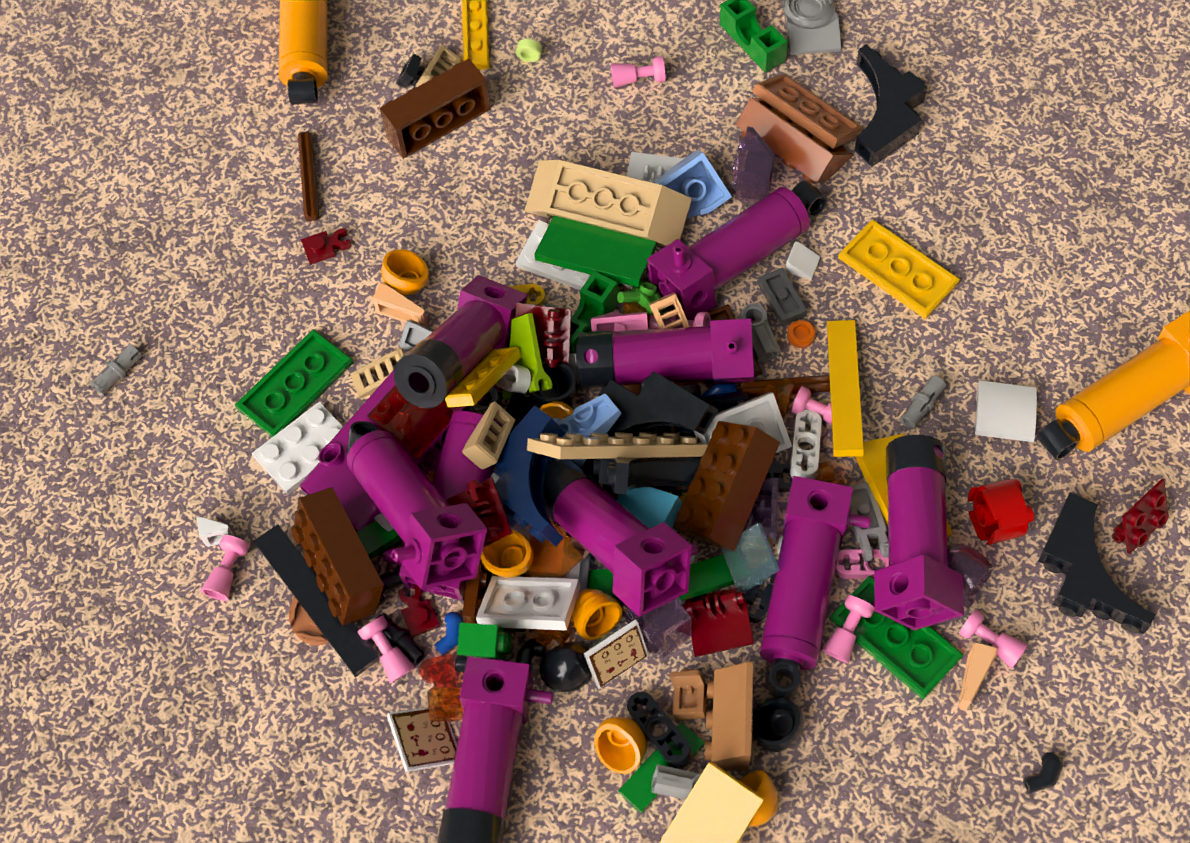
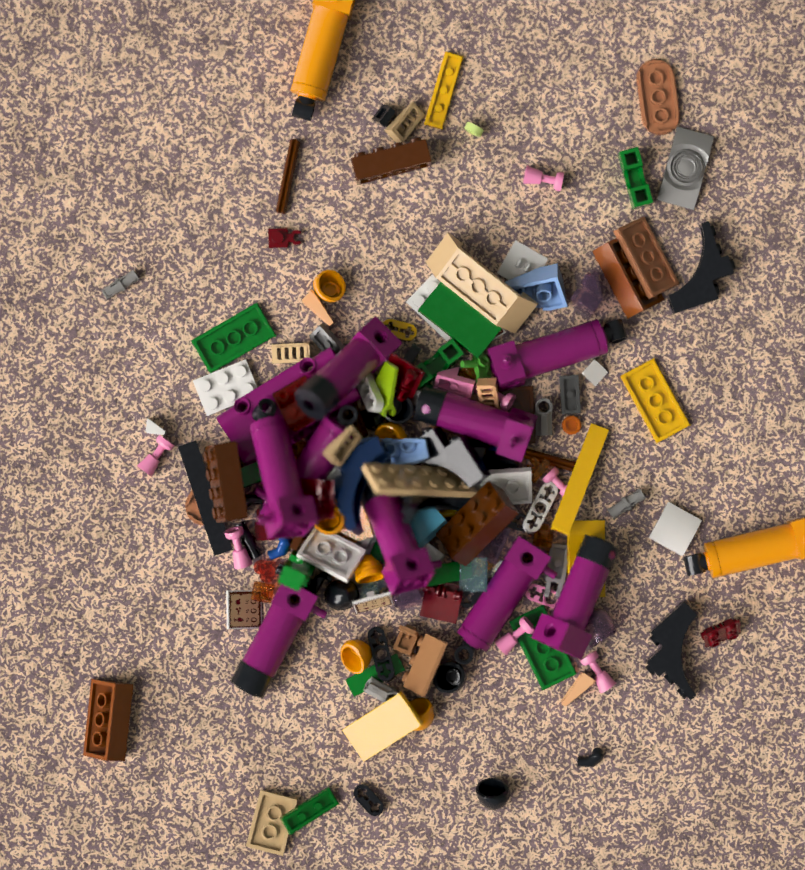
camera: 10 degrees right, 25 degrees up
(483, 377) = (352, 403): yellow tile -> none
(999, 511) = (637, 597): red brick -> none

